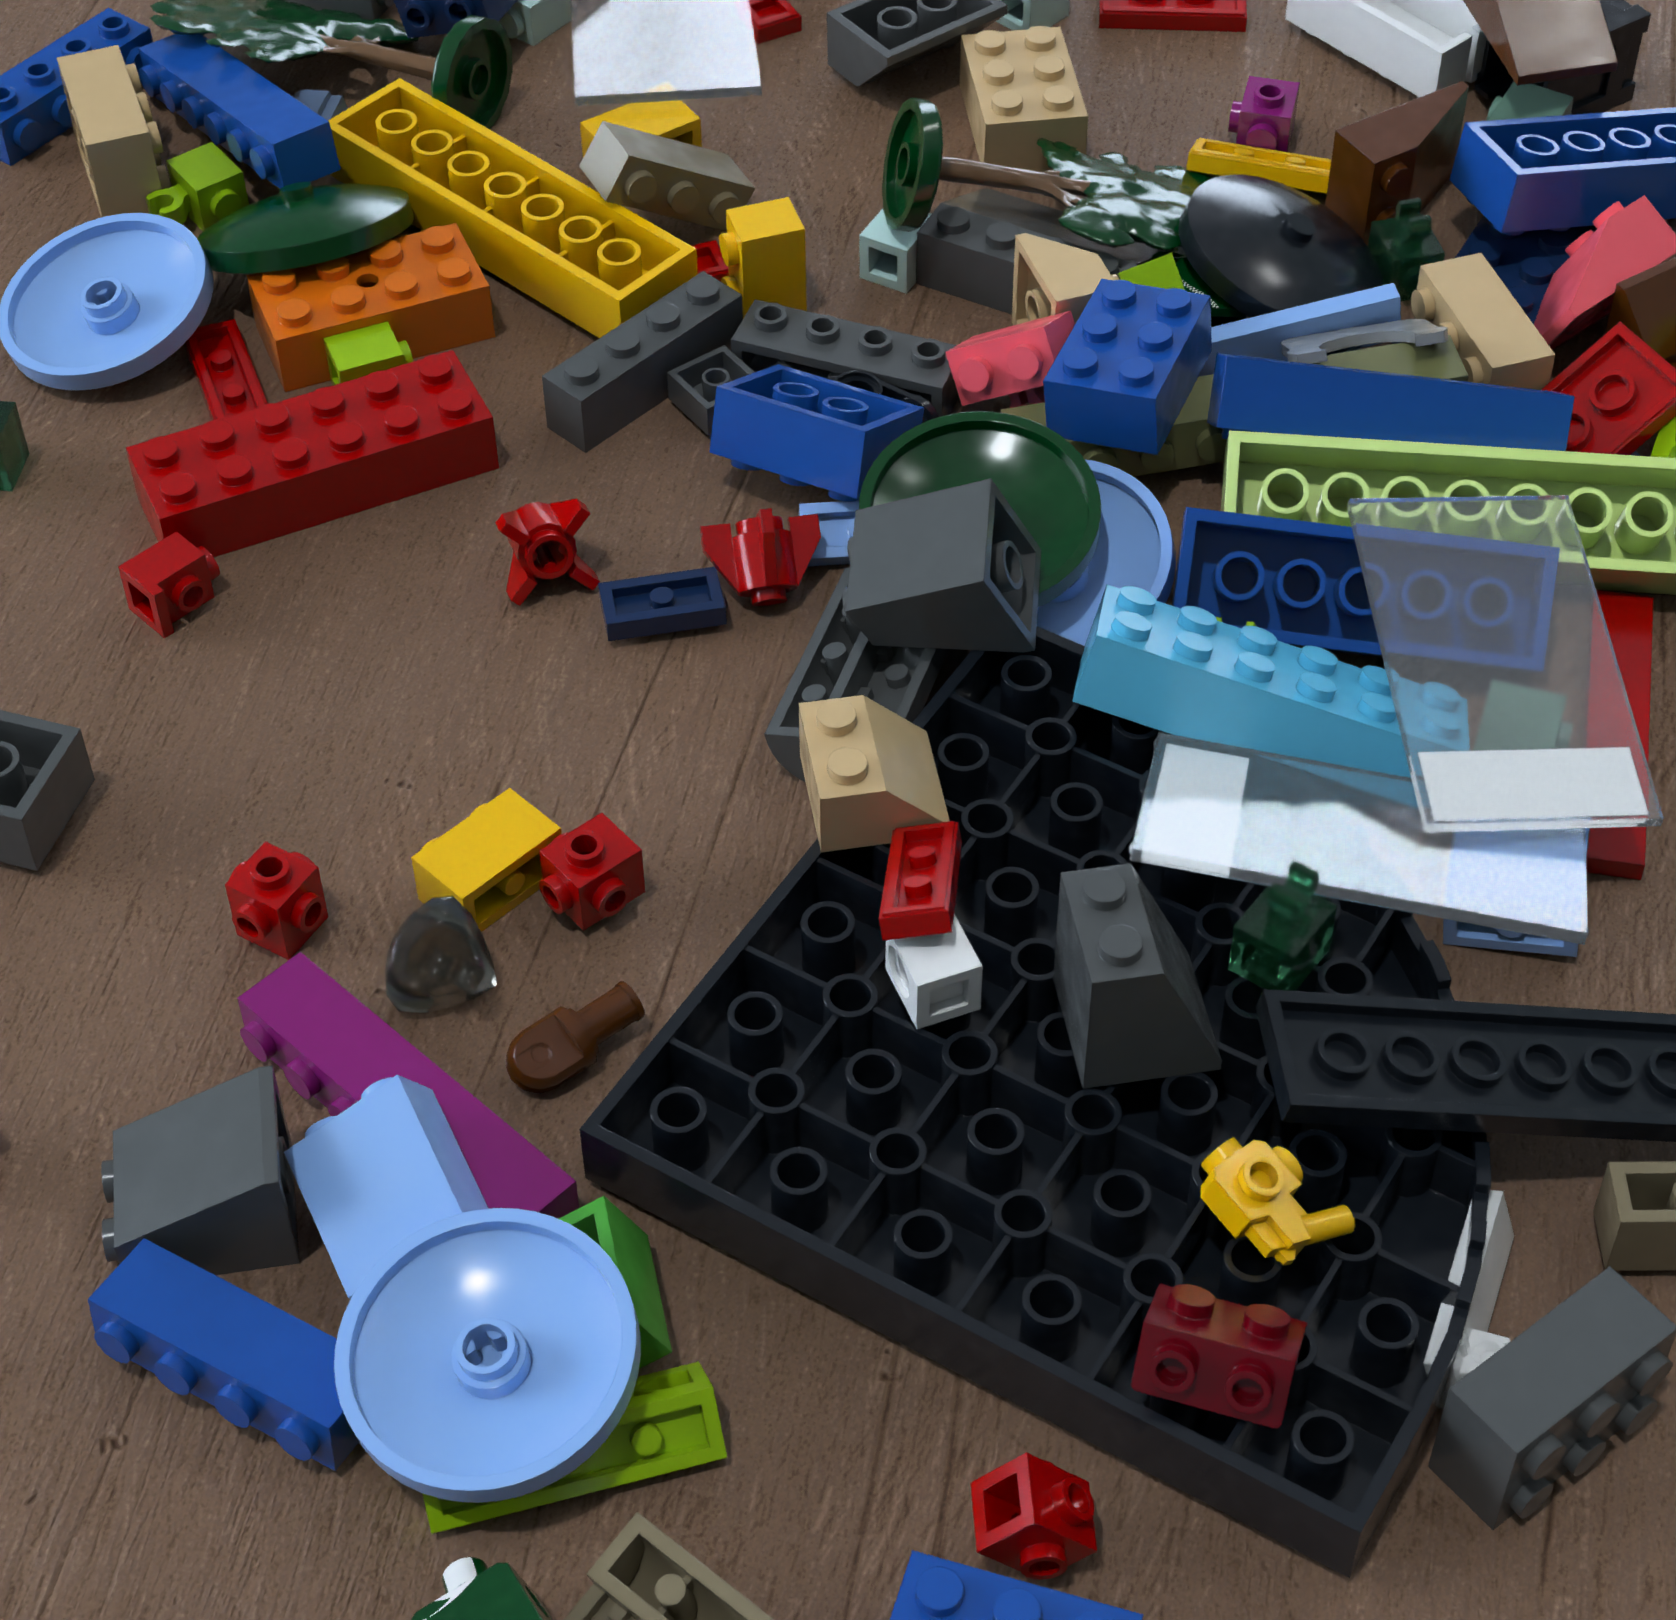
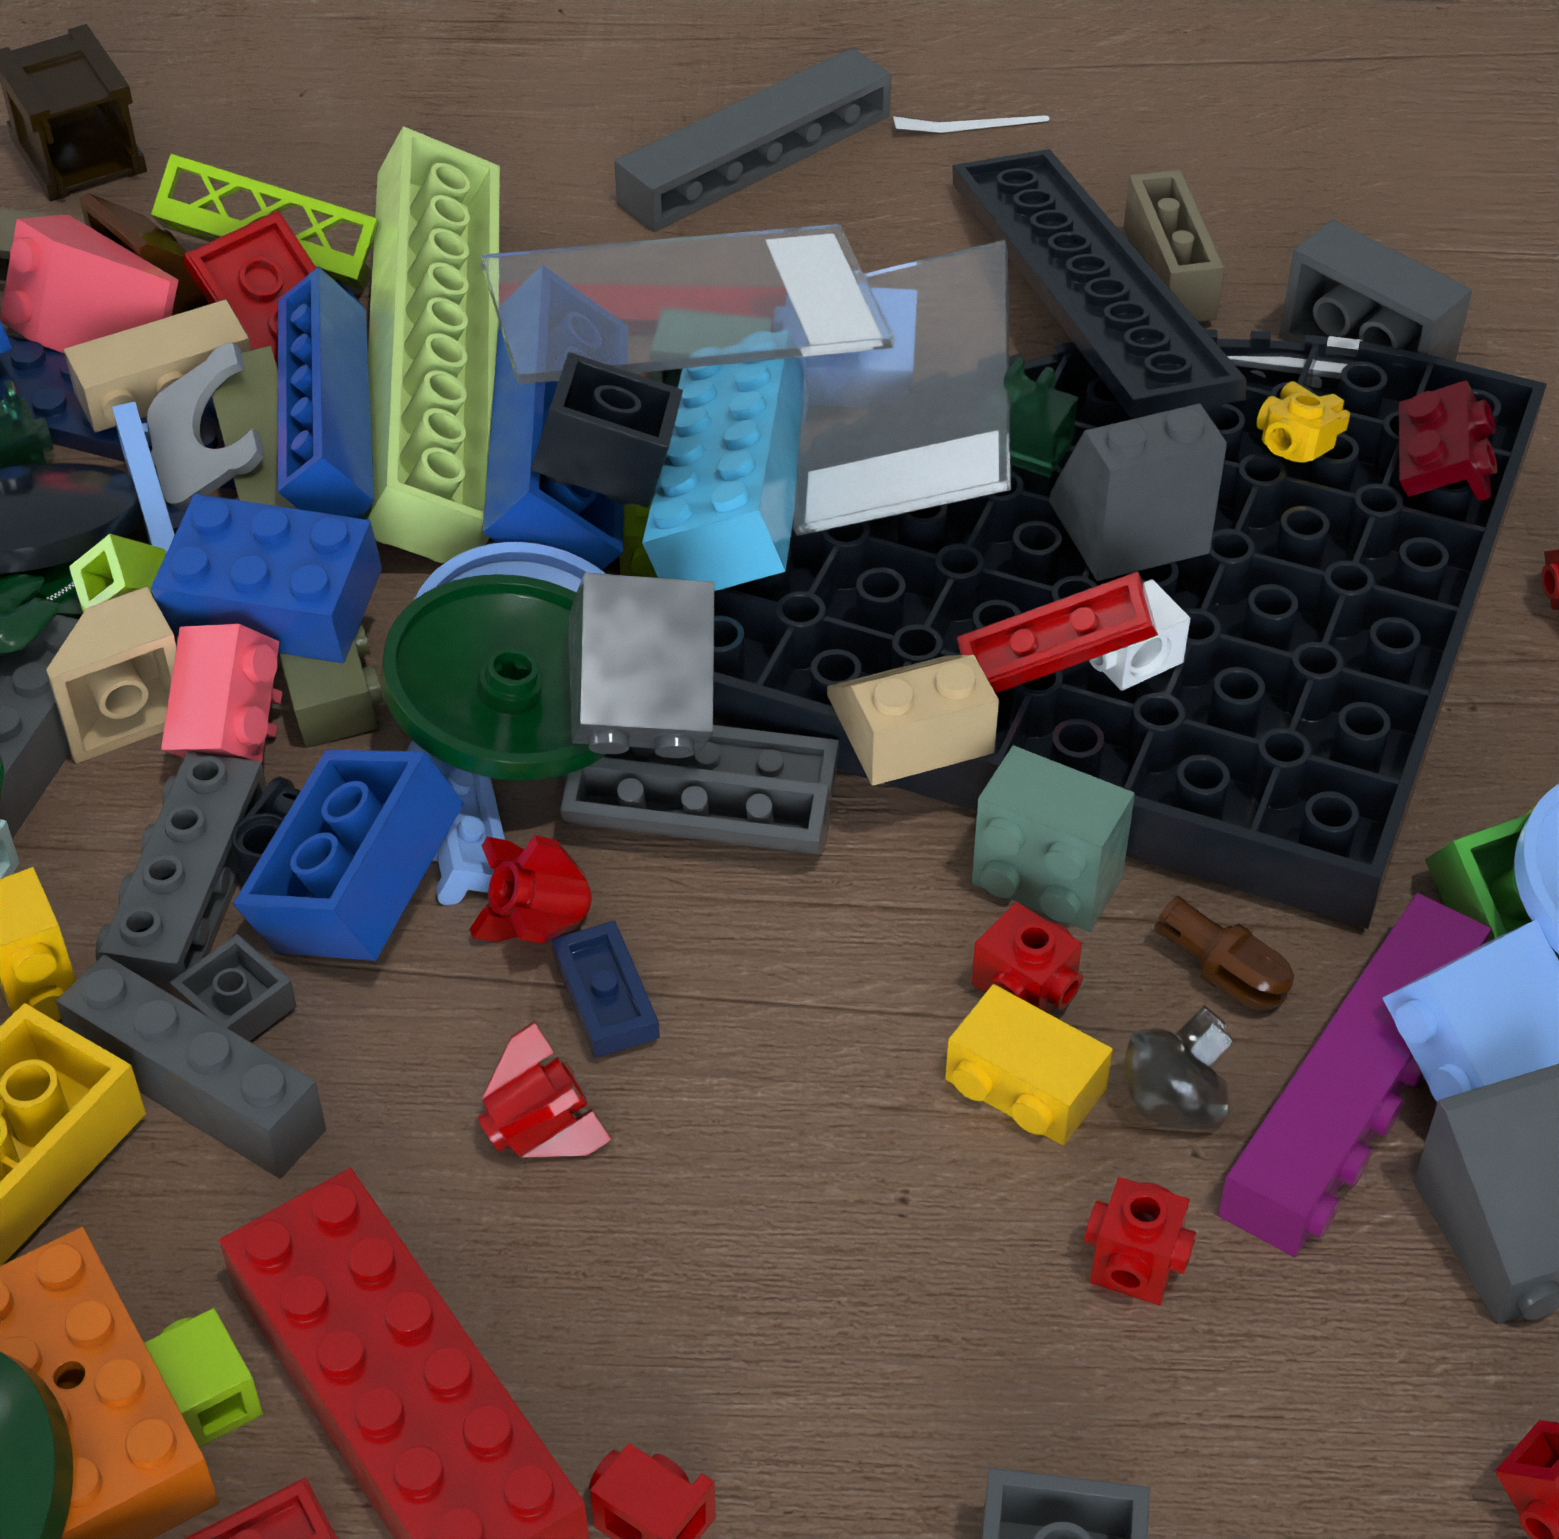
camera: 100 degrees left, 0 degrees up
(713, 888) = (1051, 838): none -> sand green brick
(1261, 556) = (607, 431): none -> black brick

